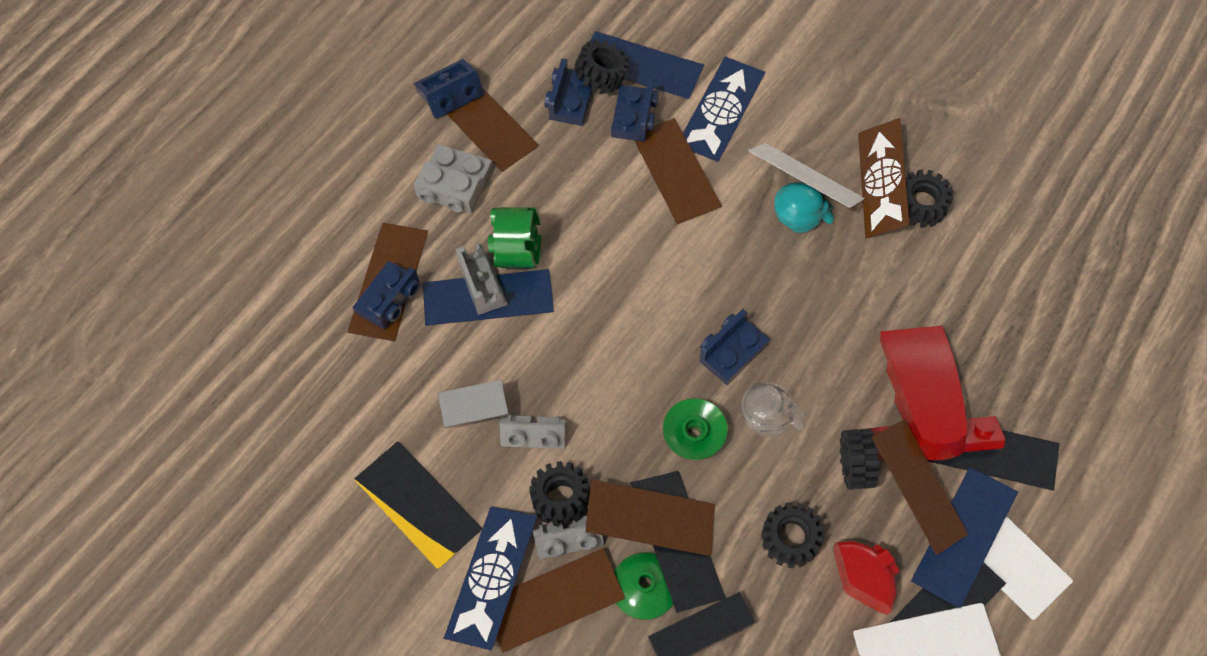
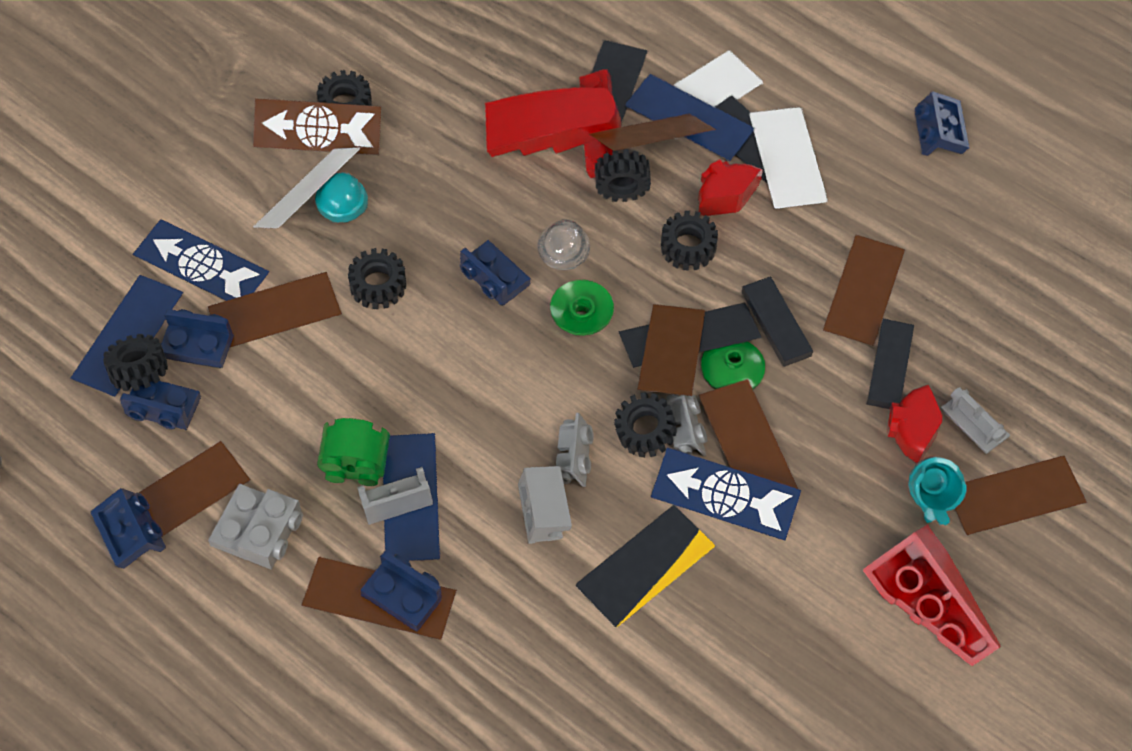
camera: 90 degrees left, 5 degrees down
(718, 231) = (372, 264): none -> black tyre

